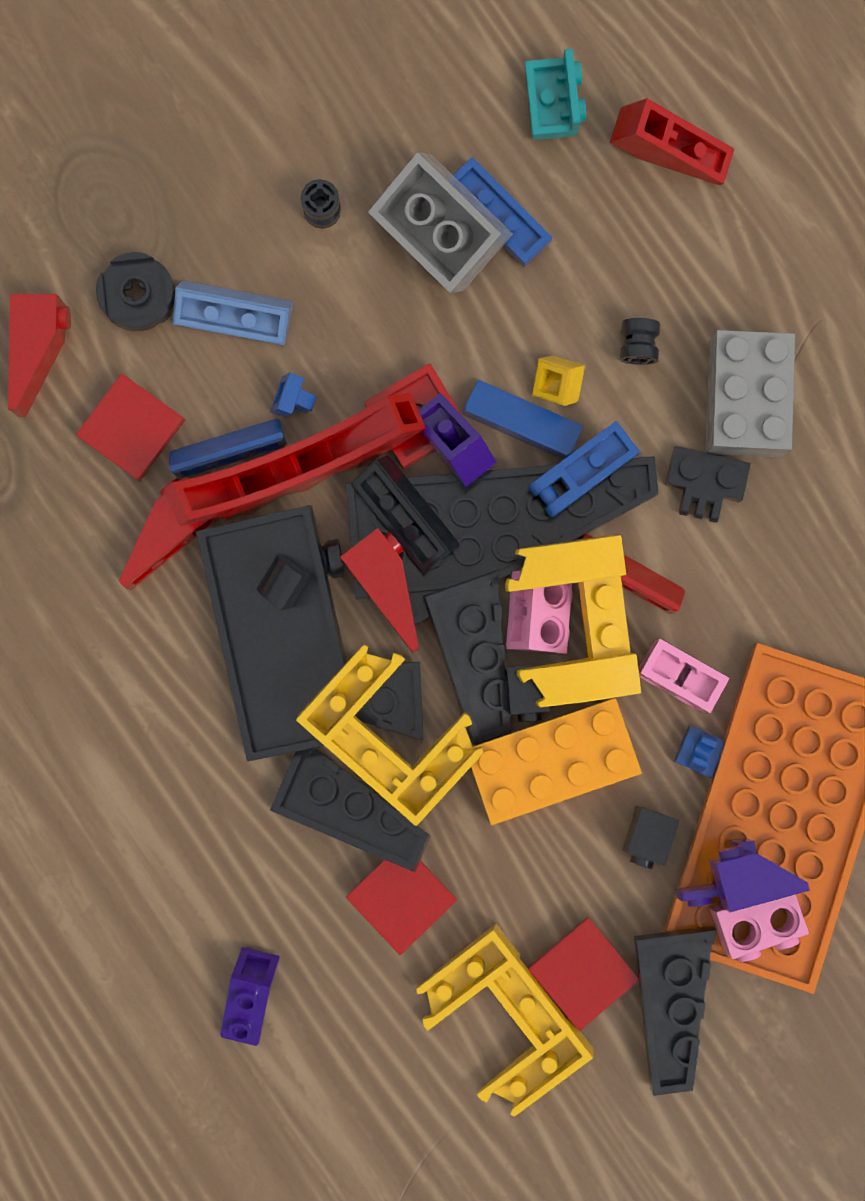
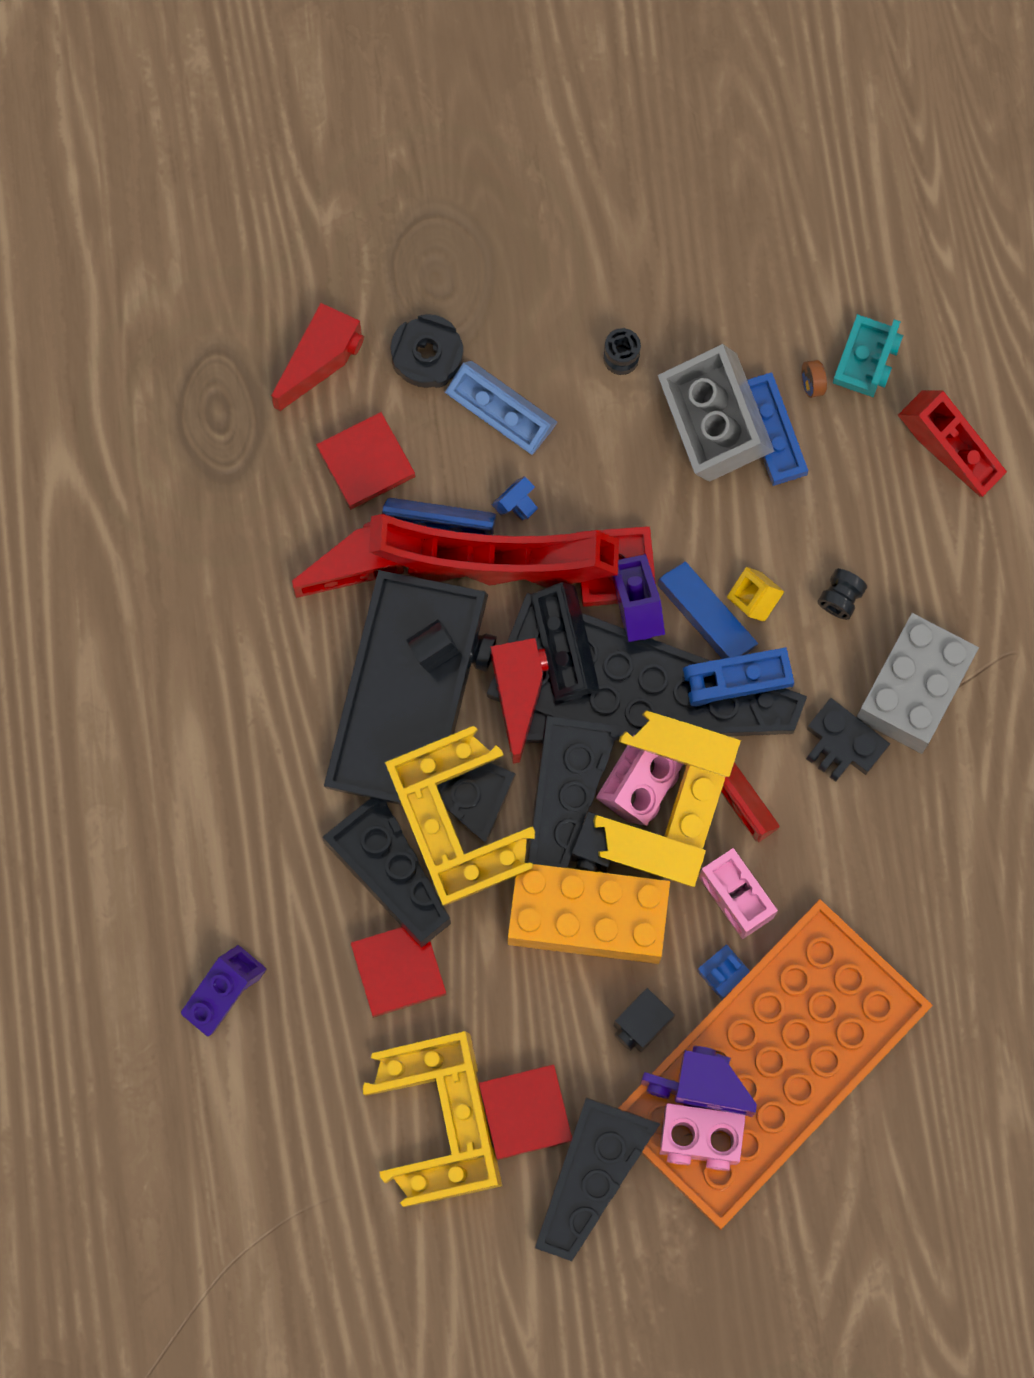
camera: 25 degrees right, 10 degrees down
(514, 144) = (814, 378): none -> dark orange tile

